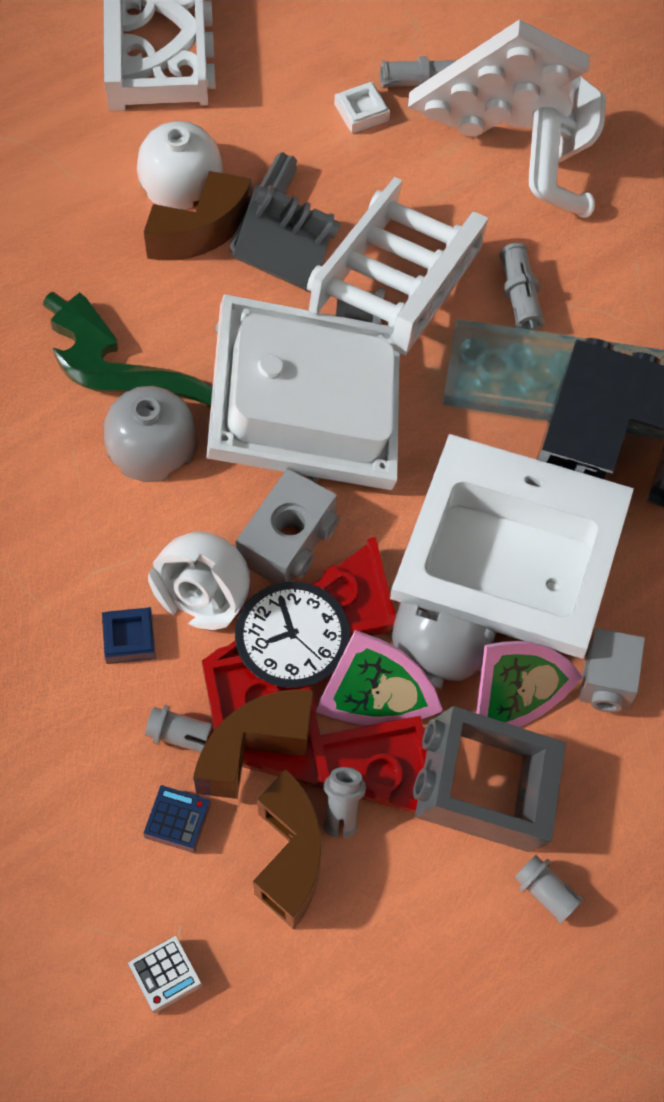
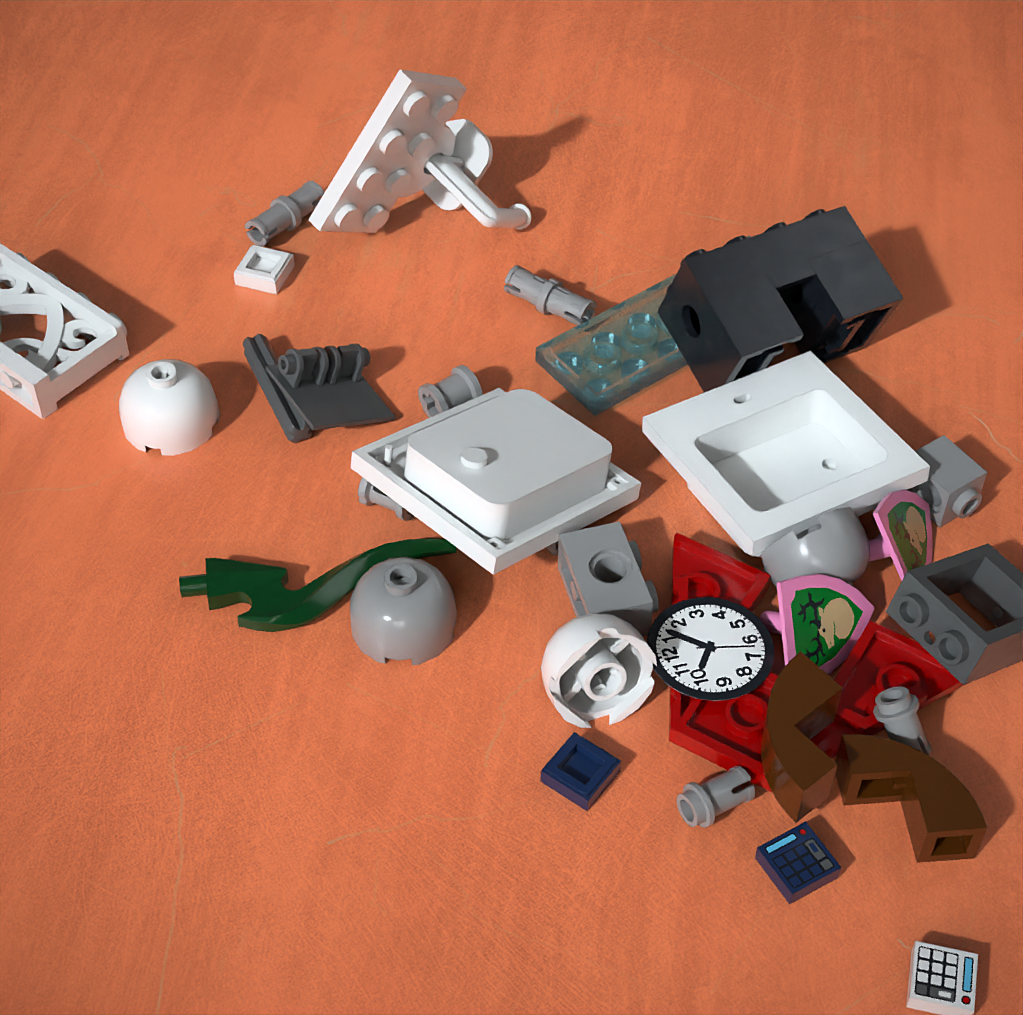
camera: 45 degrees left, 15 degrees down
(187, 234) = (241, 448): reddish brown brick -> none
(424, 293) = (485, 314): white fence -> none

